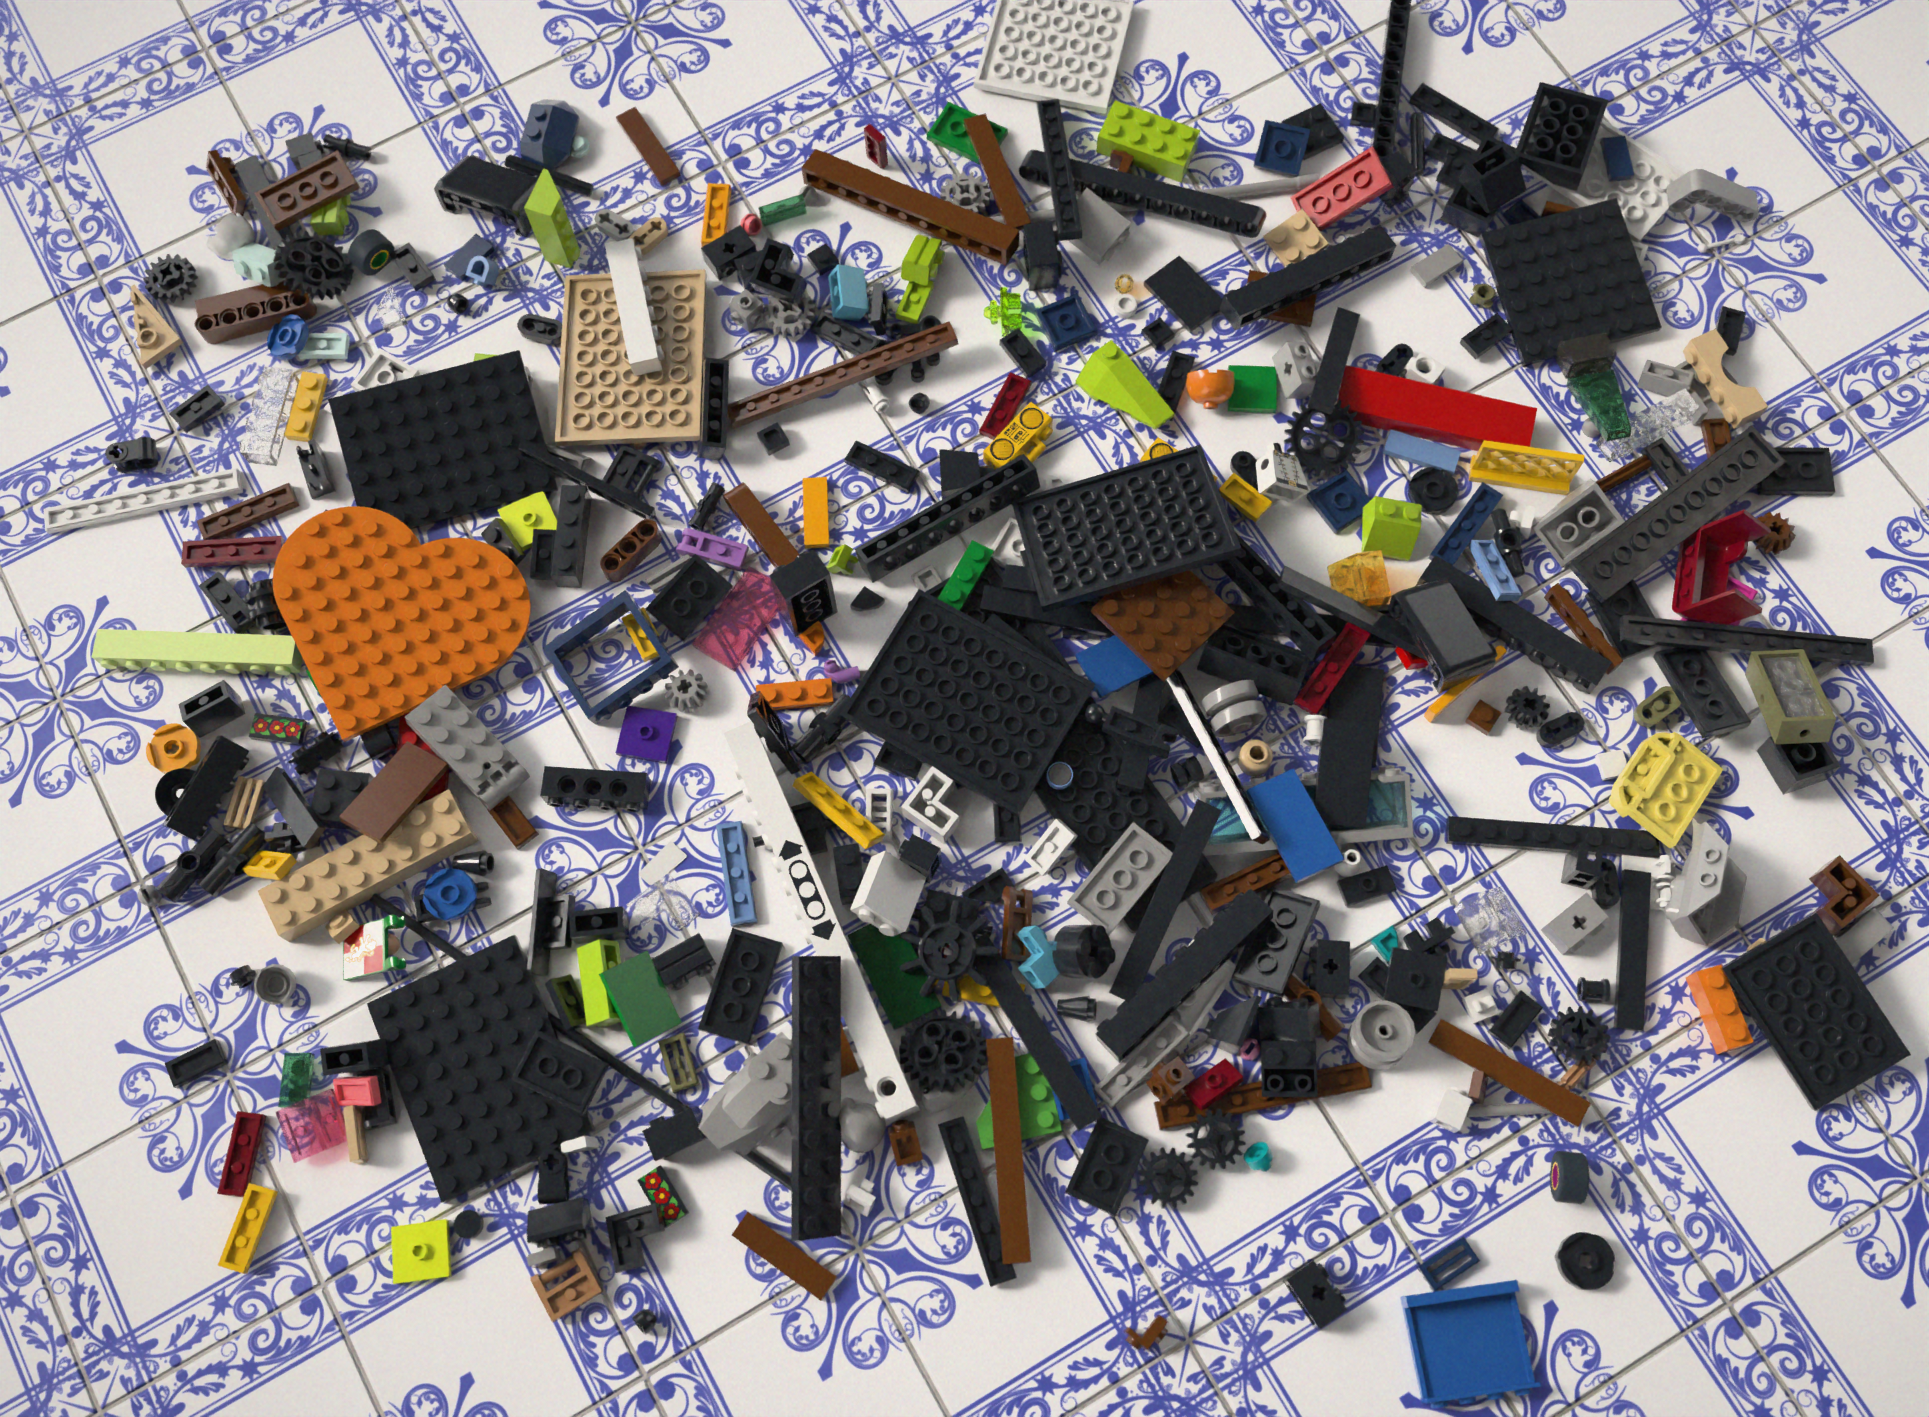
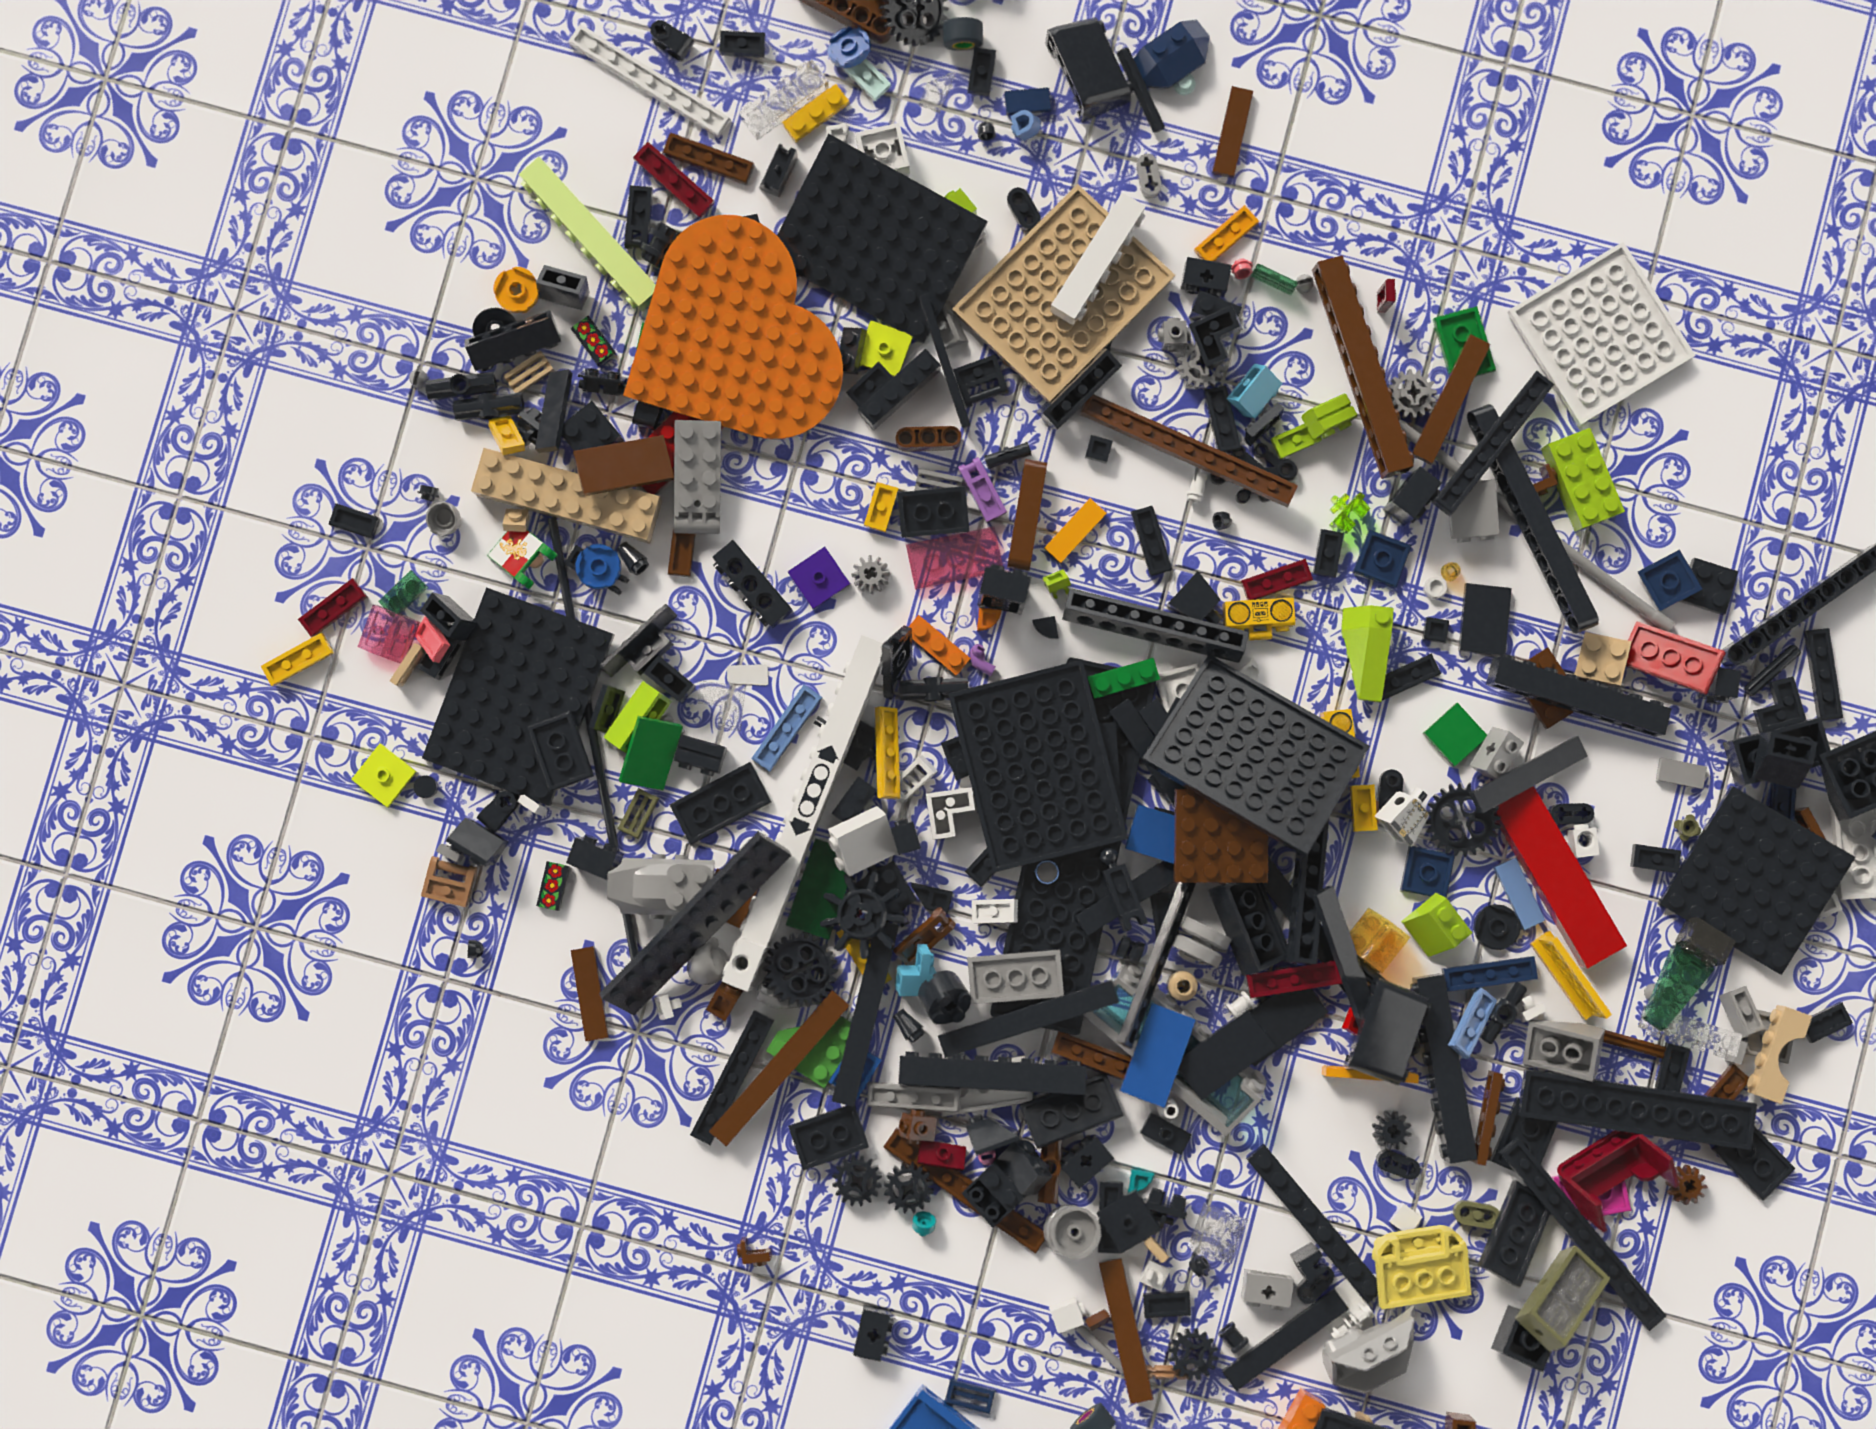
camera: 40 degrees right, 15 degrees up
(551, 223) = (1100, 141): lime slope -> none
(587, 629) = (853, 469): dark blue window -> none
(625, 1234) = (513, 886): black plate -> none
(648, 236) = (1164, 212): tan beam -> none
(823, 259) = (1265, 344): black plate -> none
(926, 578) = (1099, 652): light grey tile -> none
(1210, 387) = (1424, 708): orange cylinder -> none
(1362, 114) = (1759, 609): black tile -> none
(1483, 717) = (1358, 1106): reddish brown plate -> none

